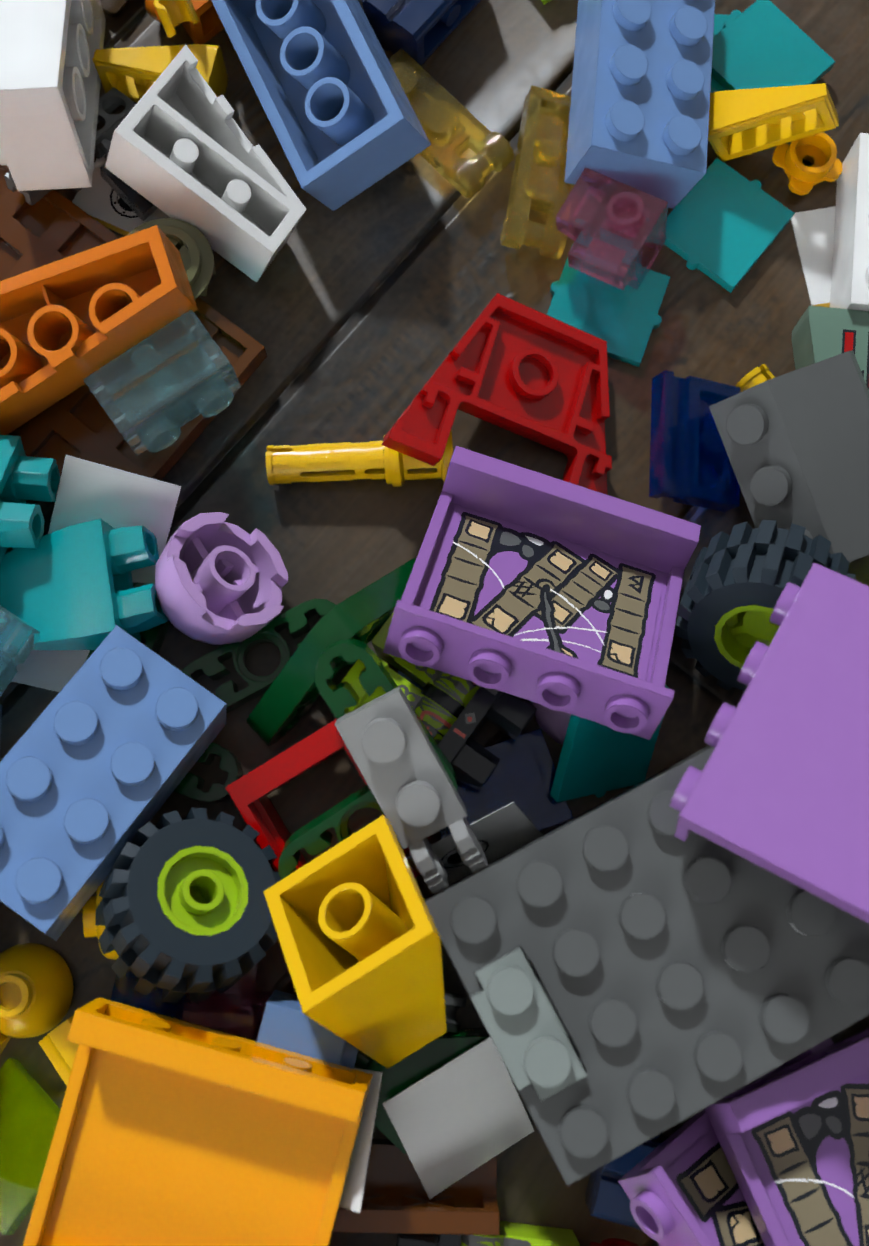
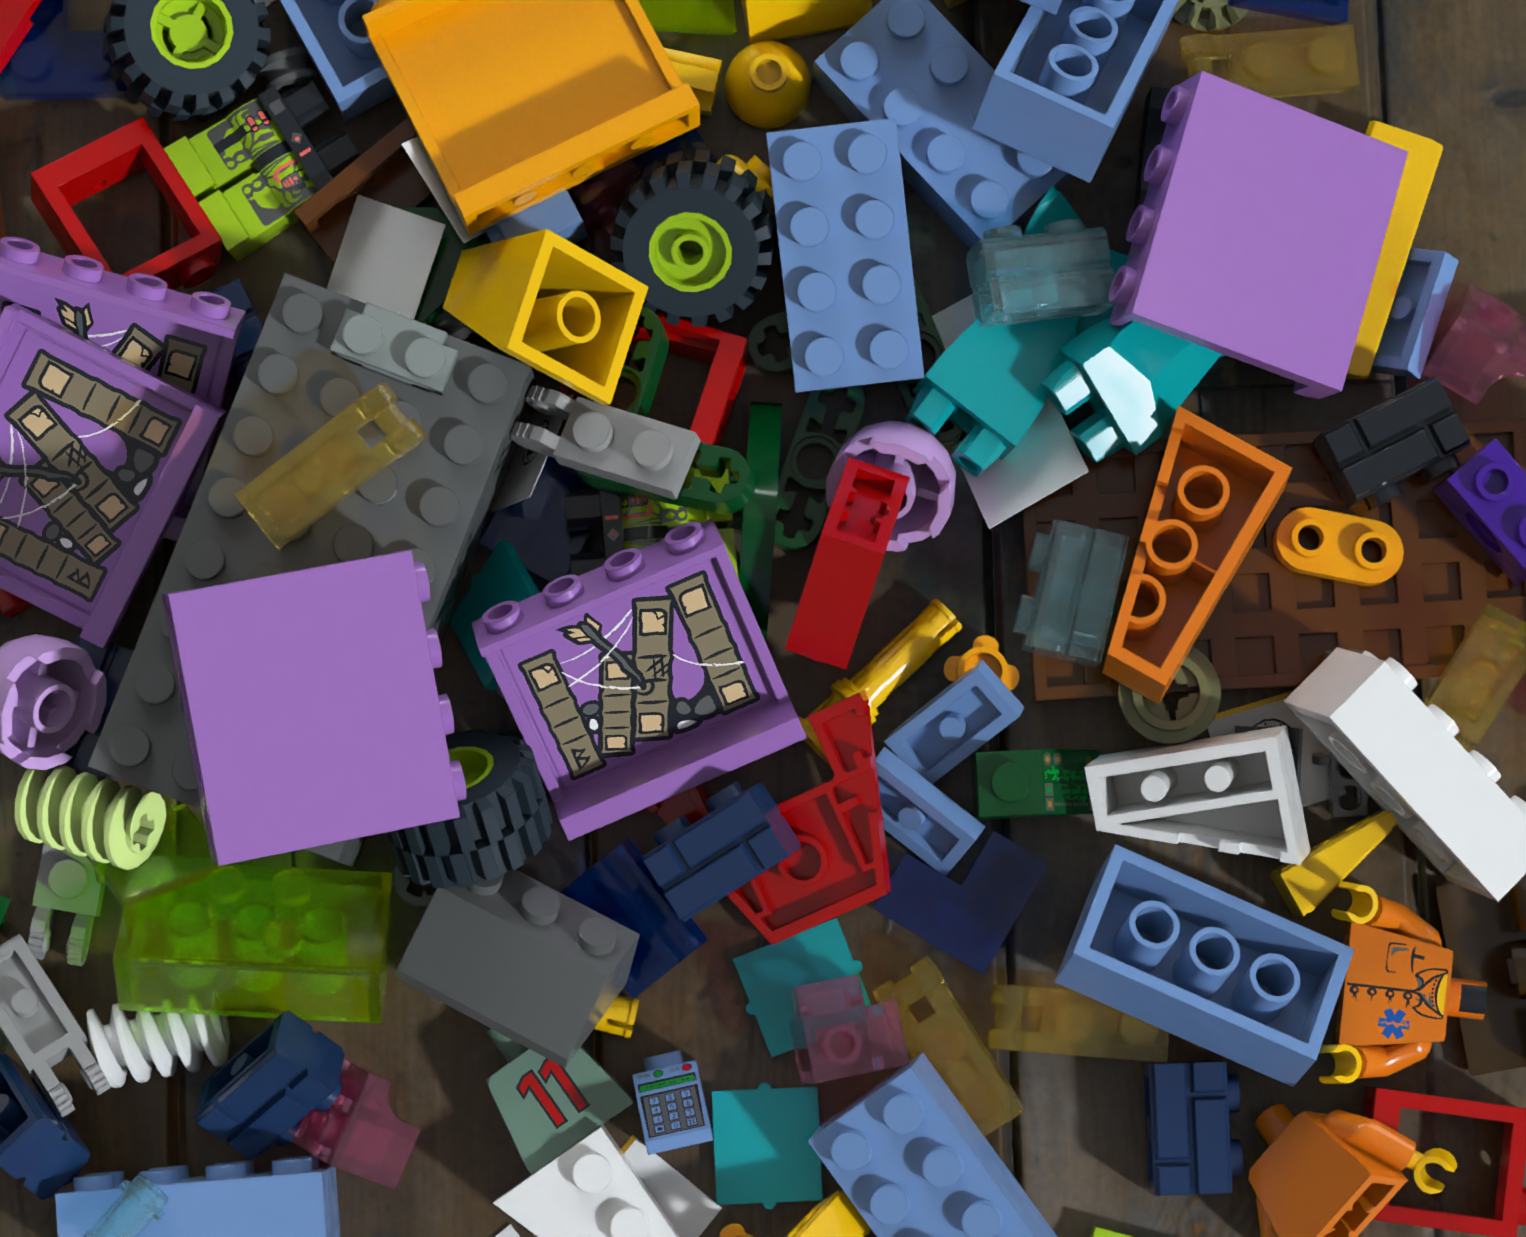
camera: 130 degrees right, 5 degrees up
(279, 388) = (984, 649): none -> light orange plate
(311, 538) = (846, 563): none -> red window
(324, 296) = (1030, 783): none -> dark green slope
(336, 375) = (955, 723): none -> medium blue plate
(416, 333) = (923, 815): none -> medium blue plate
(441, 245) = (970, 917): none -> clear blue plate
(591, 422) = (720, 850): none -> dark blue brick
(684, 964) = (329, 466): none -> clear yellow plate
(783, 277) = (671, 1103): none -> slope

